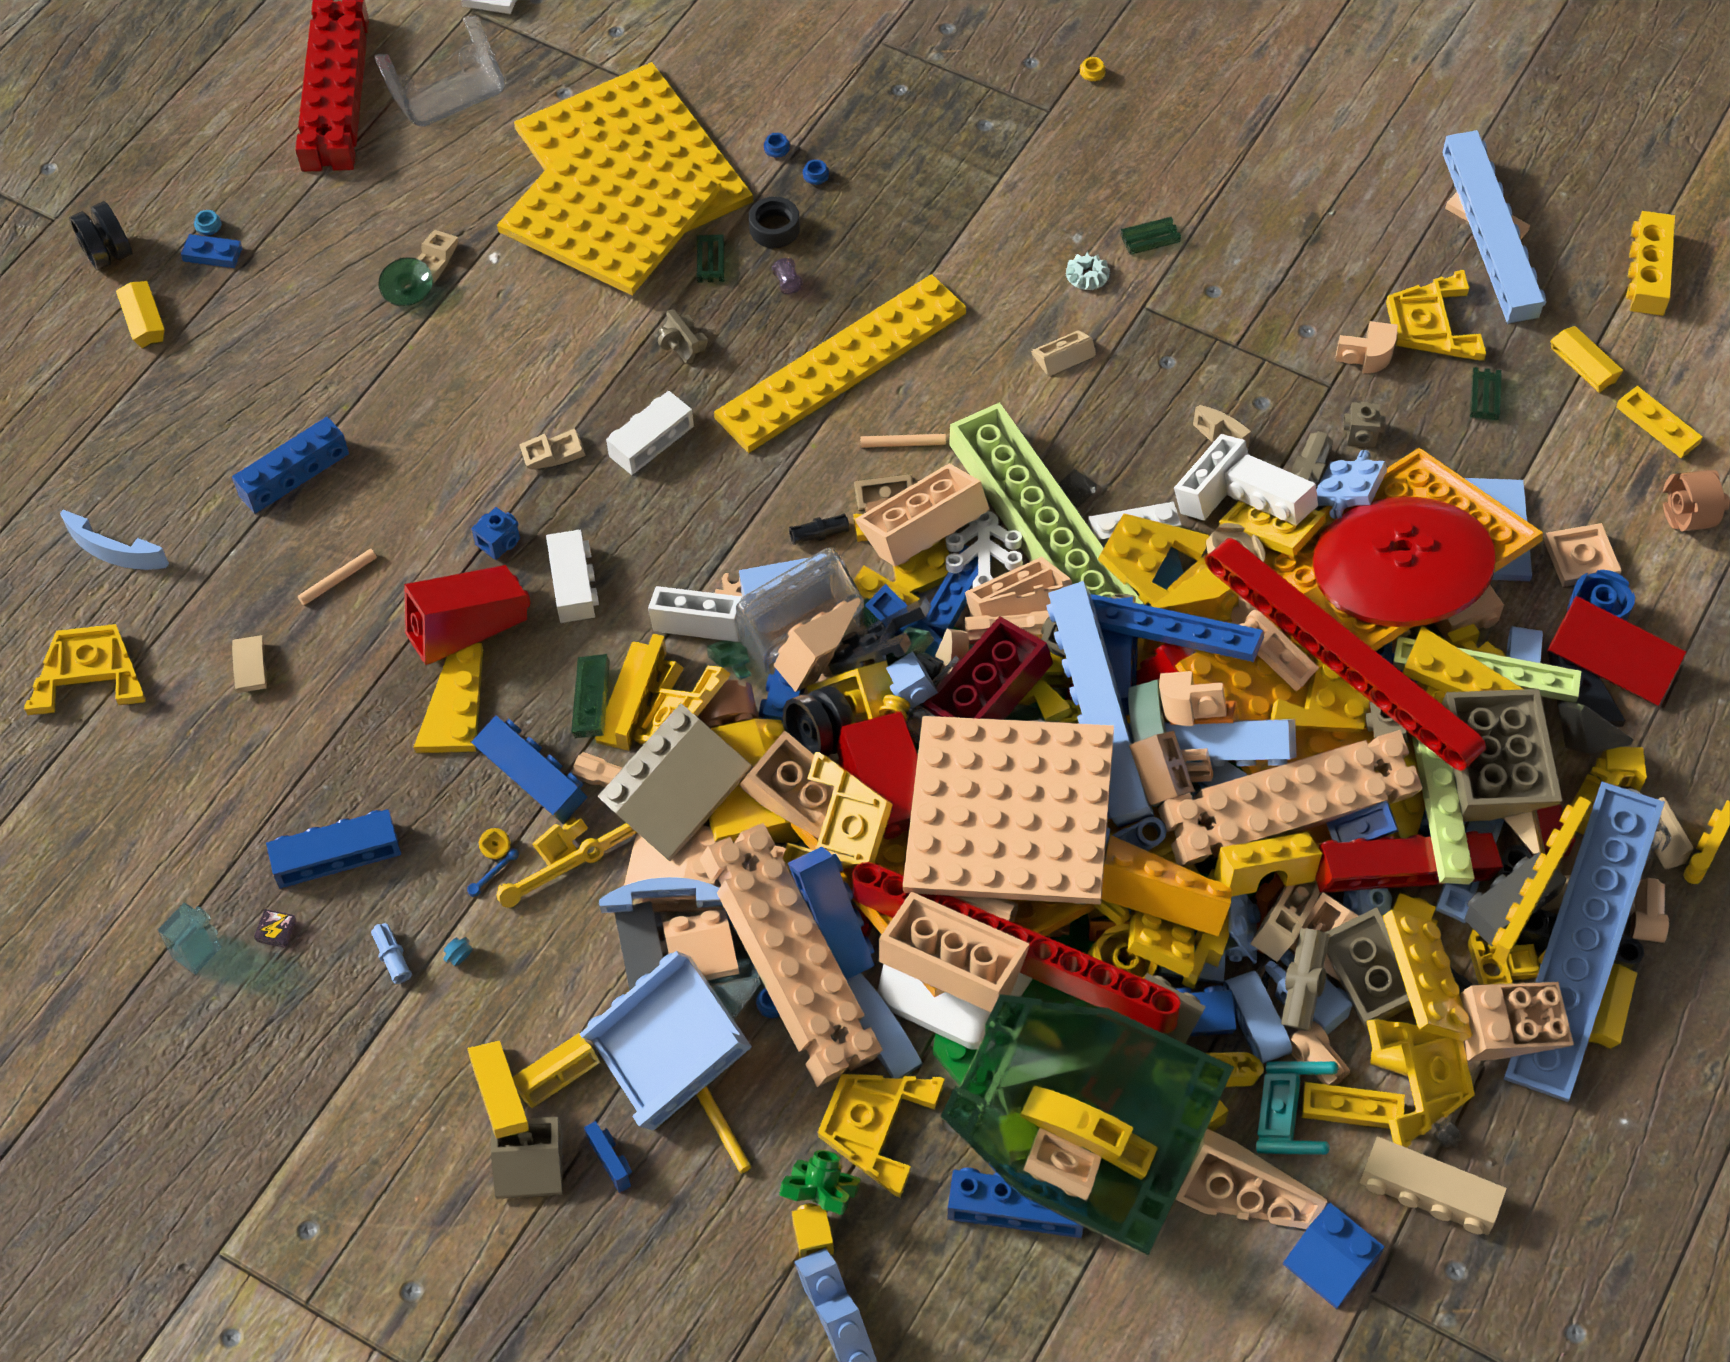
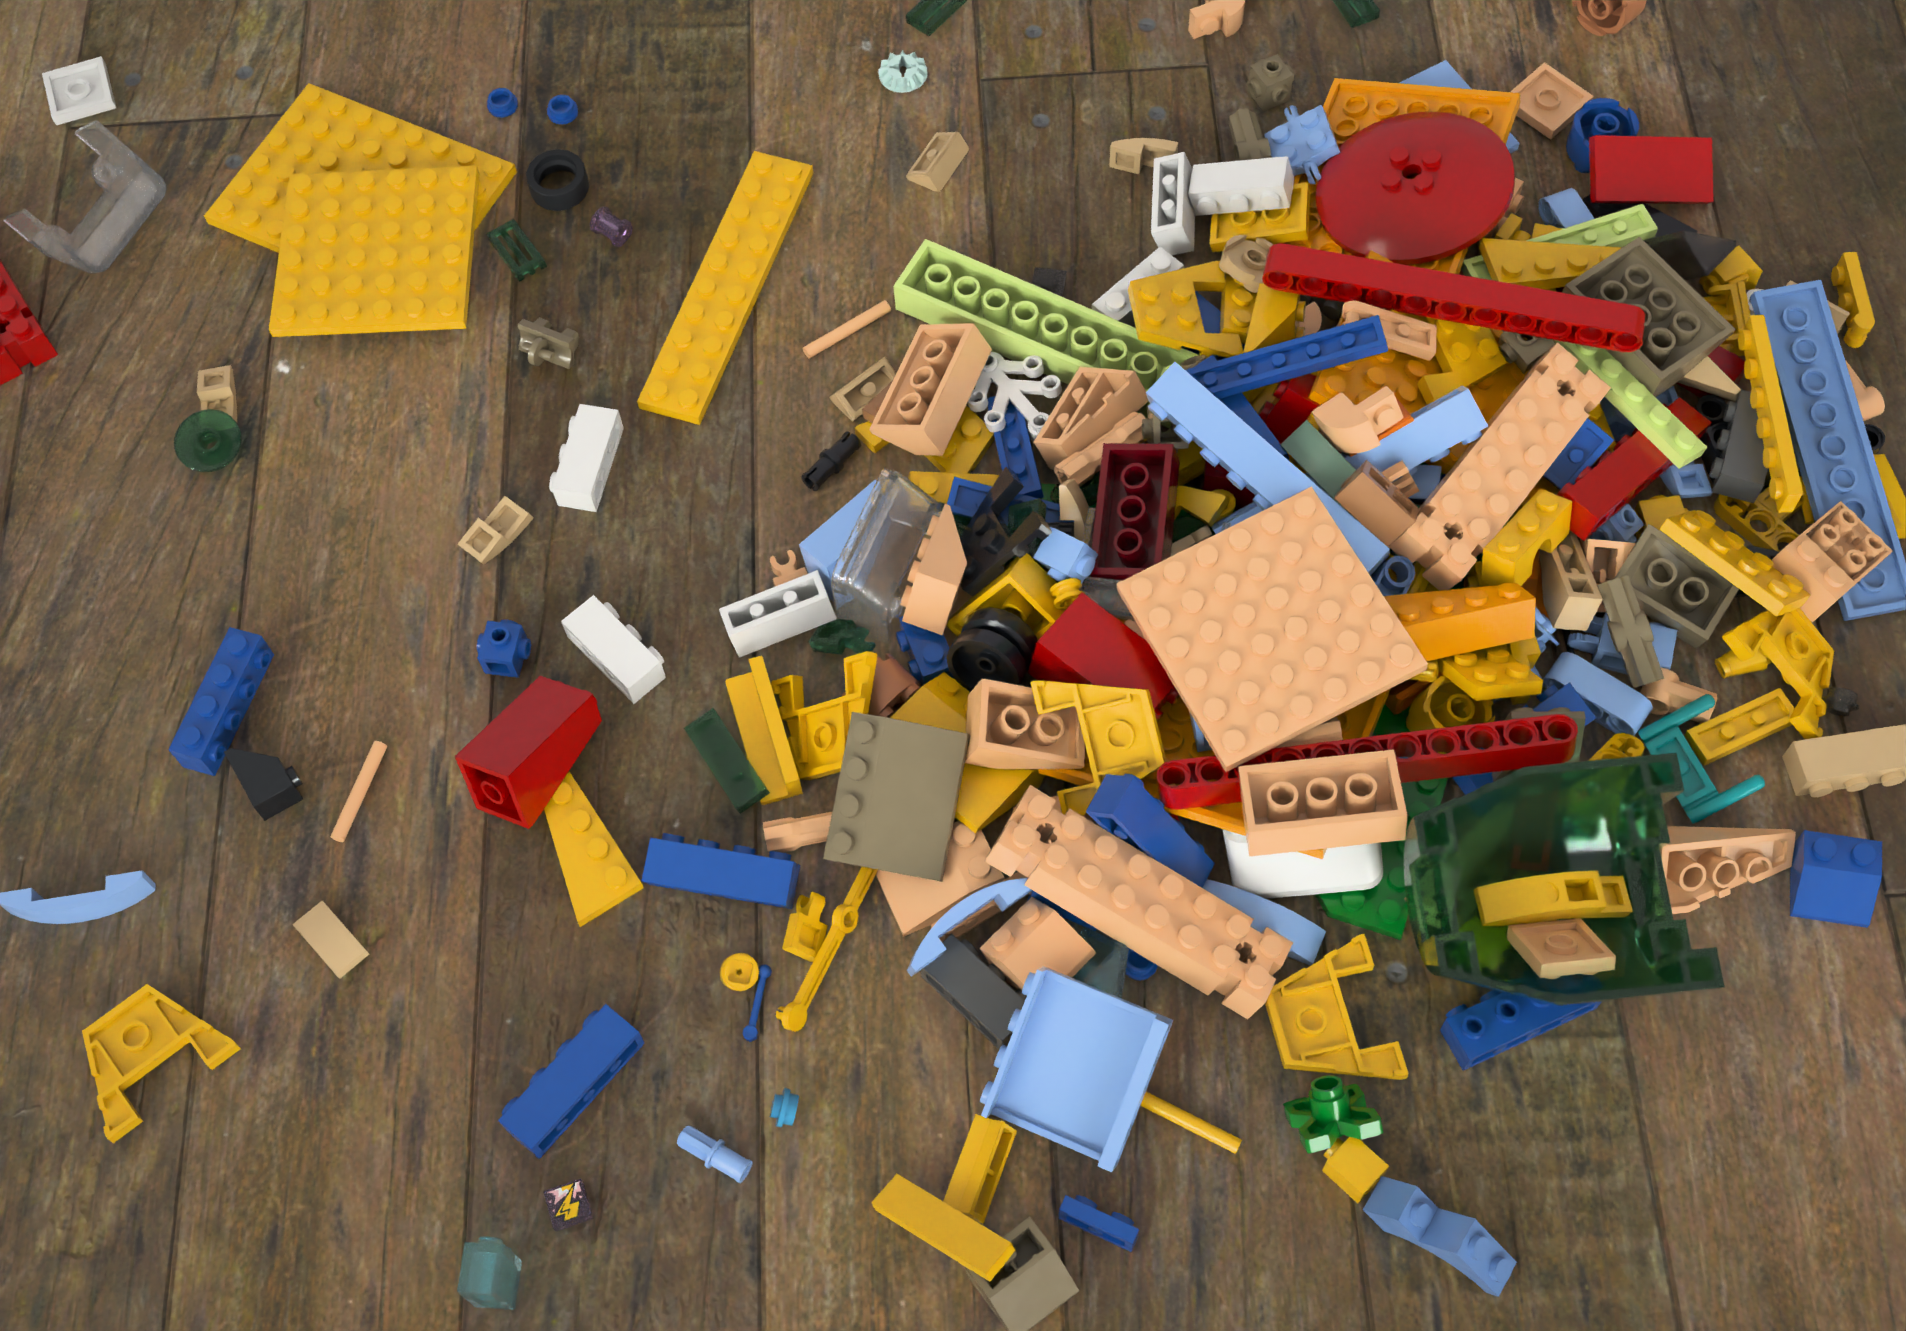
camera: 30 degrees left, 5 degrees up
(280, 535) = (265, 781): none -> black slope

